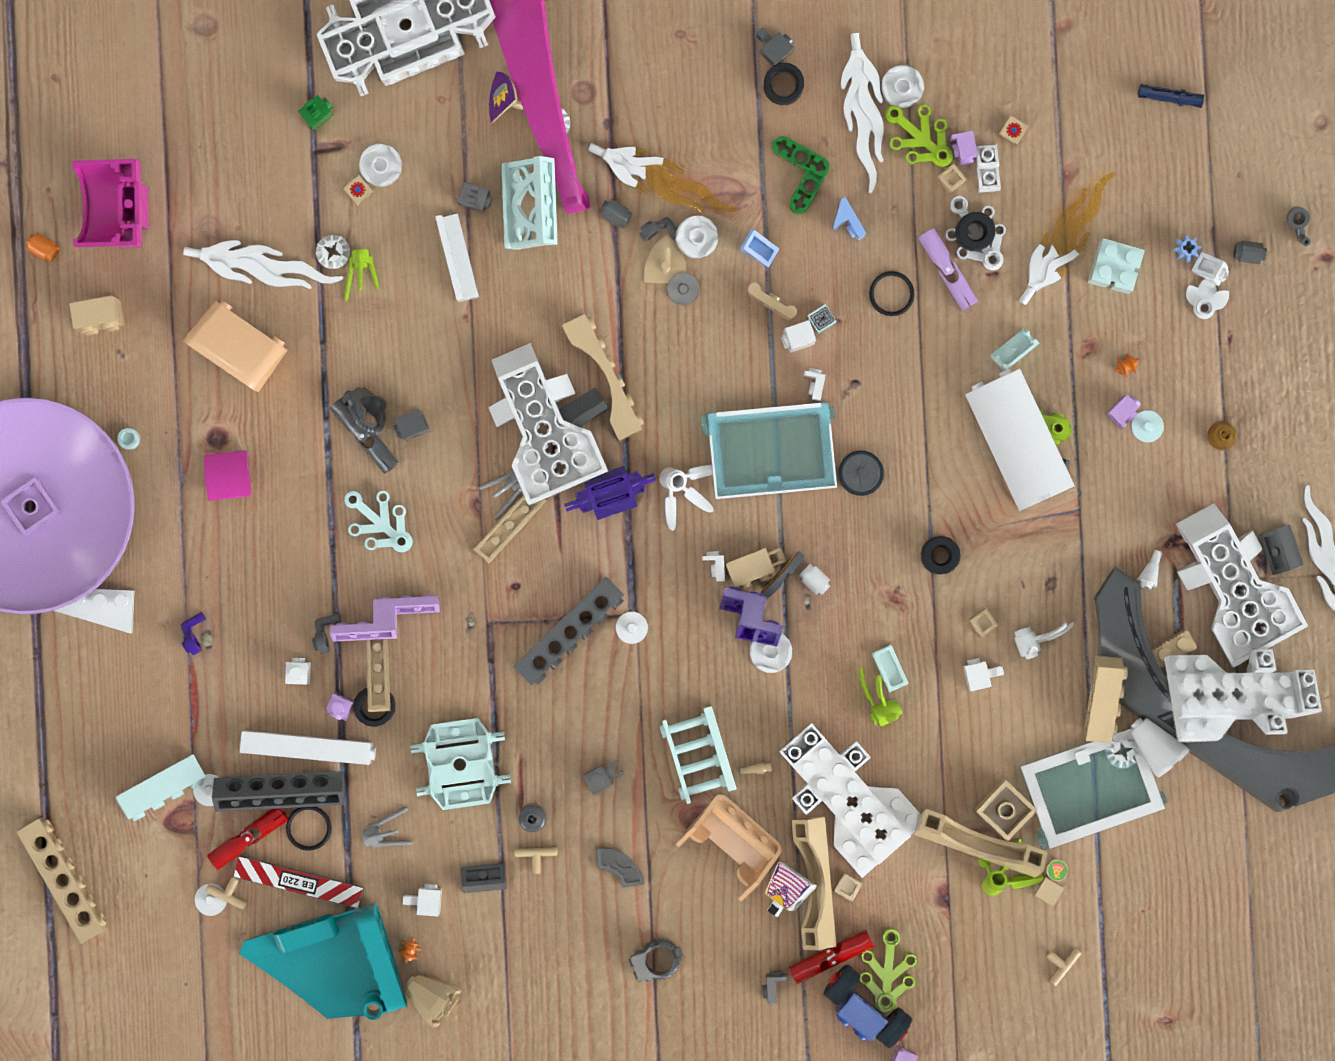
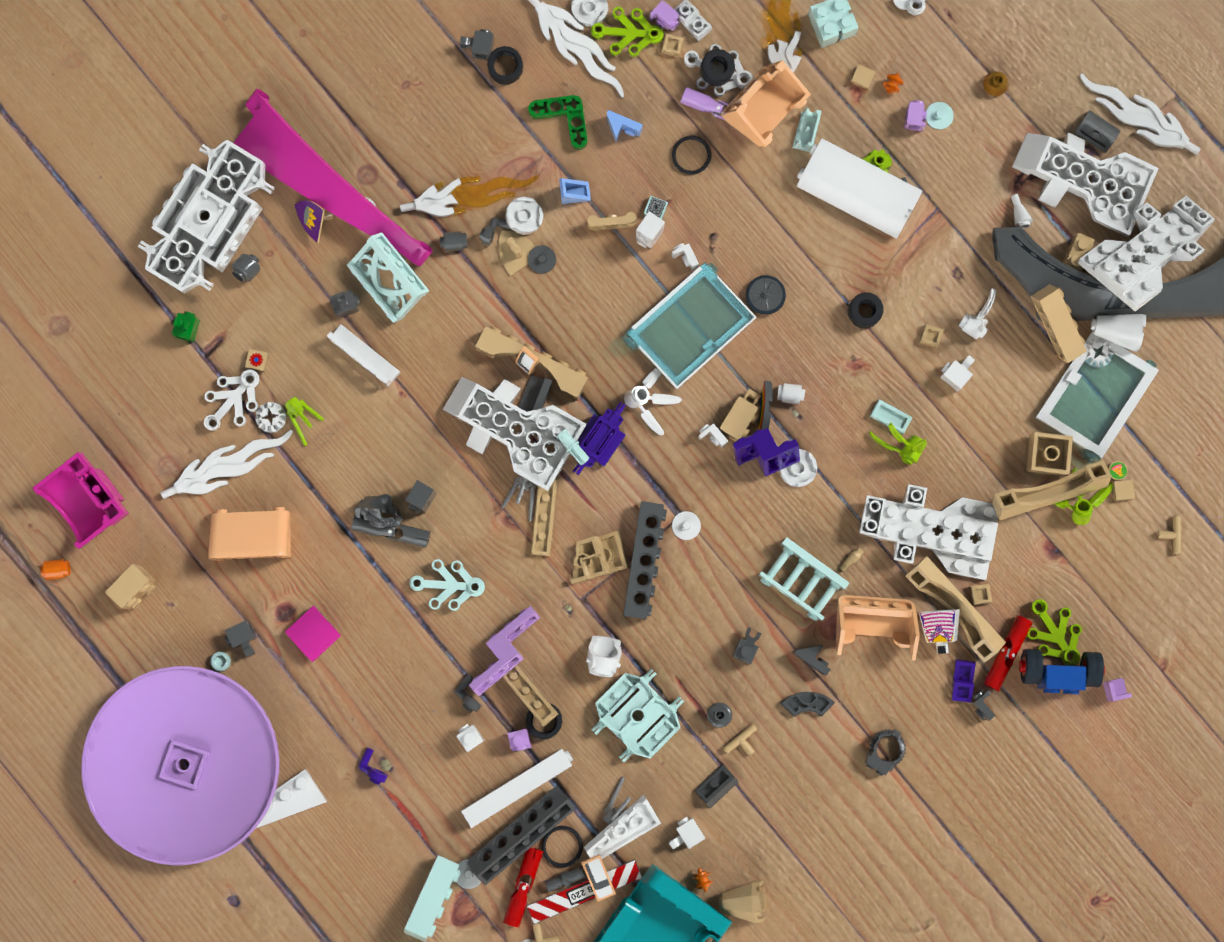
camera: 40 degrees left, 5 degrees down
(163, 430) = (241, 635): none -> dark grey brick
(290, 858) = (565, 879): none -> dark grey pin
(312, 209) = (233, 397): none -> white plant
(319, 879) = (598, 877): none -> slope
(380, 165) = (259, 331): white tile -> none
(383, 855) = (628, 826): none -> white wing
(409, 98) = (245, 267): none -> dark grey head
(469, 689) = (603, 656): none -> white helmet
(531, 597) = (599, 557): none -> tan slope
(579, 483) = (573, 447): none -> light aqua axle
(598, 373) = (527, 360): none -> slope
(652, 825) = (808, 656): none -> dark grey slope
(773, 950) = (963, 680): none -> dark purple slope
(992, 297) = (765, 102): none -> light nougat windscreen
(1104, 338) = (863, 77): none -> tan tile

